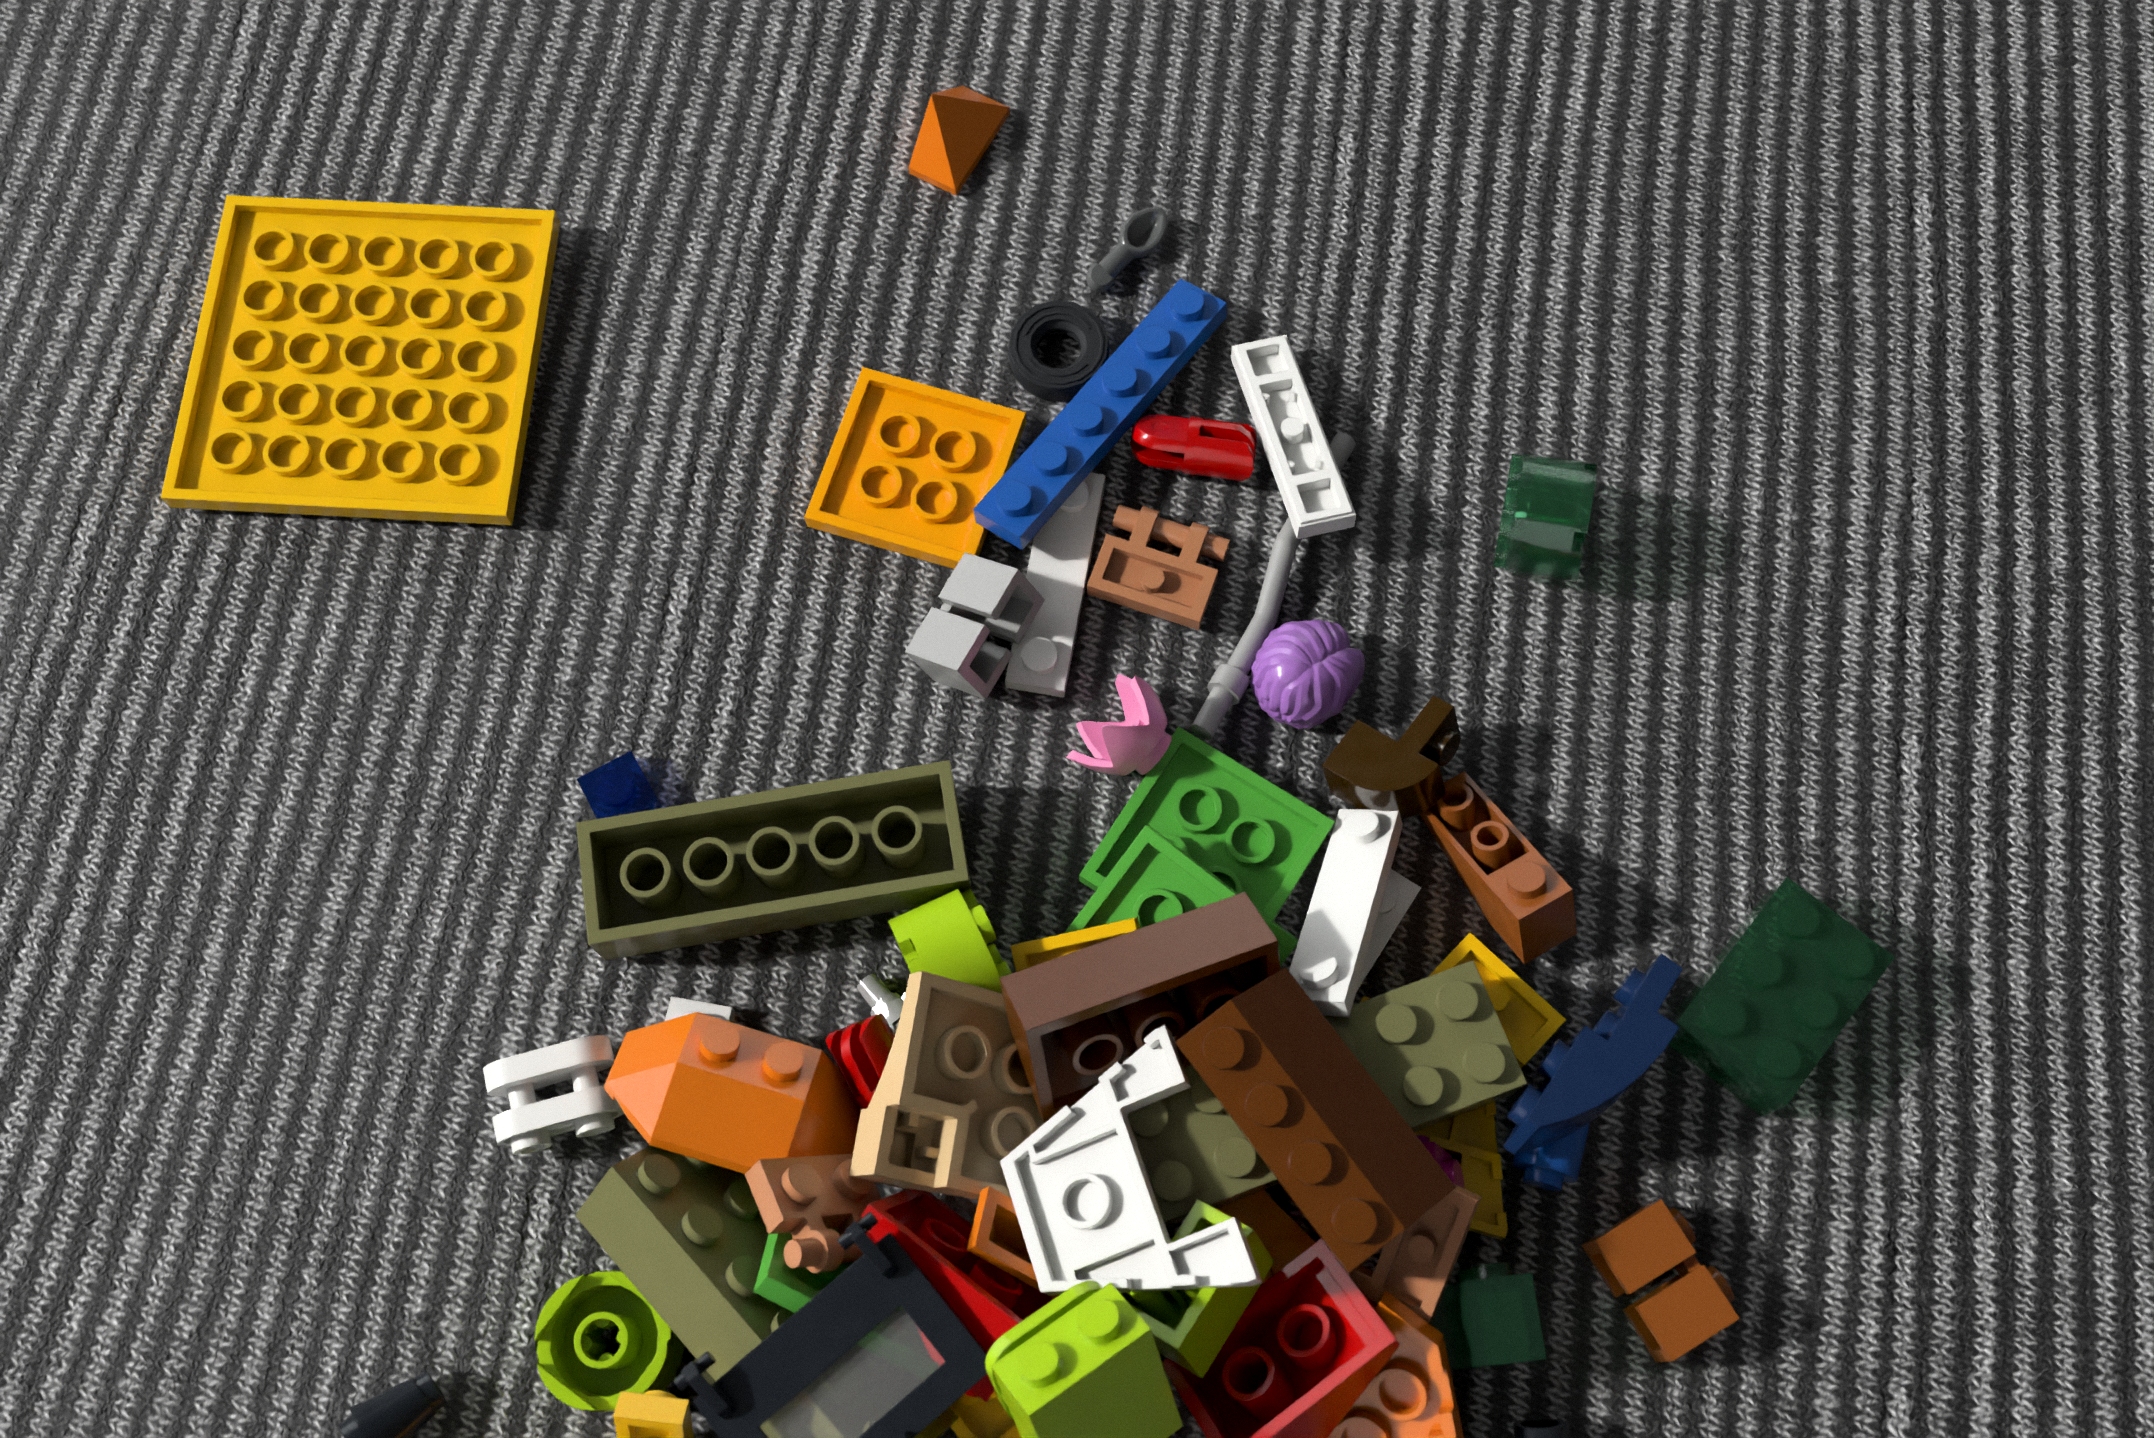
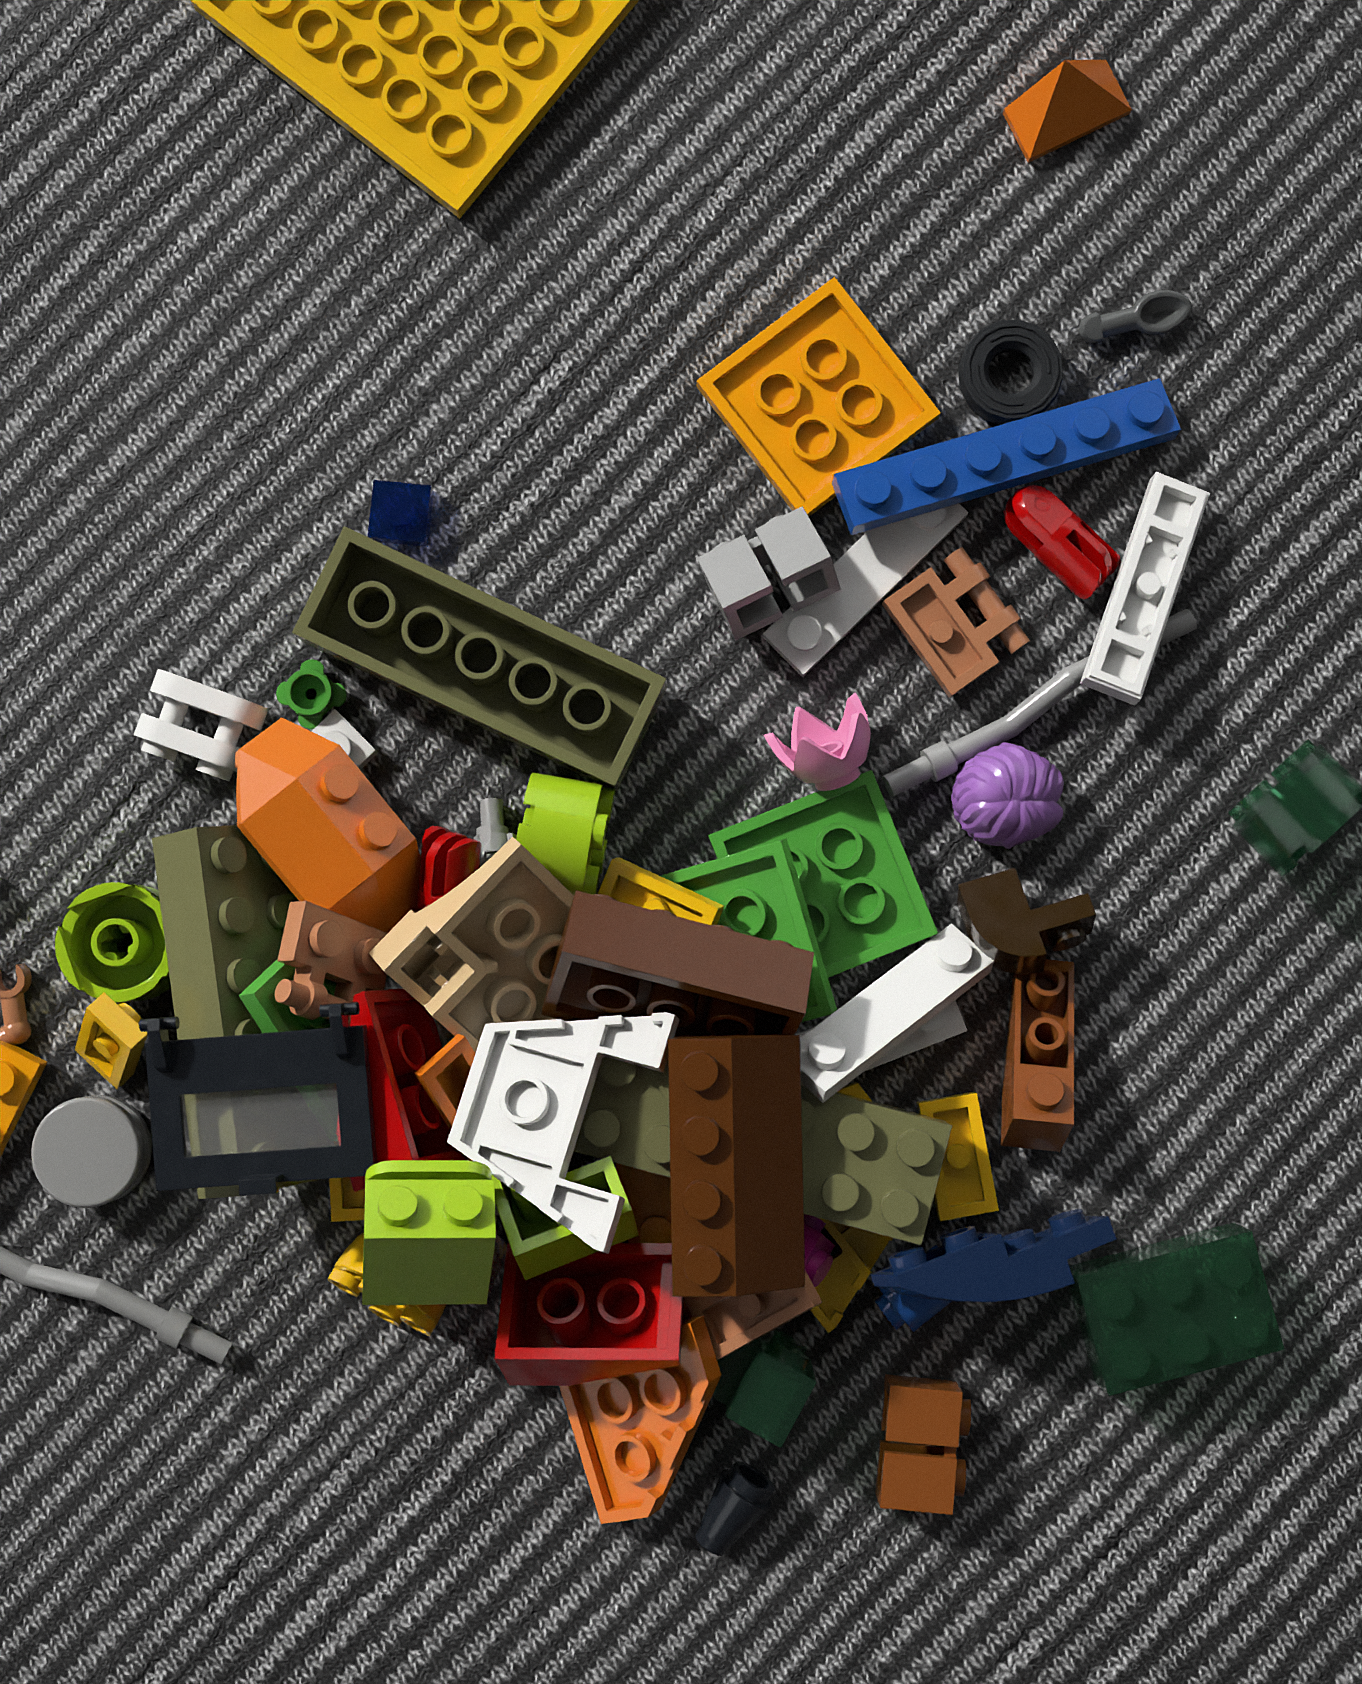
camera: 40 degrees right, 15 degrees up
(630, 984) = (311, 677): none -> bright green plate

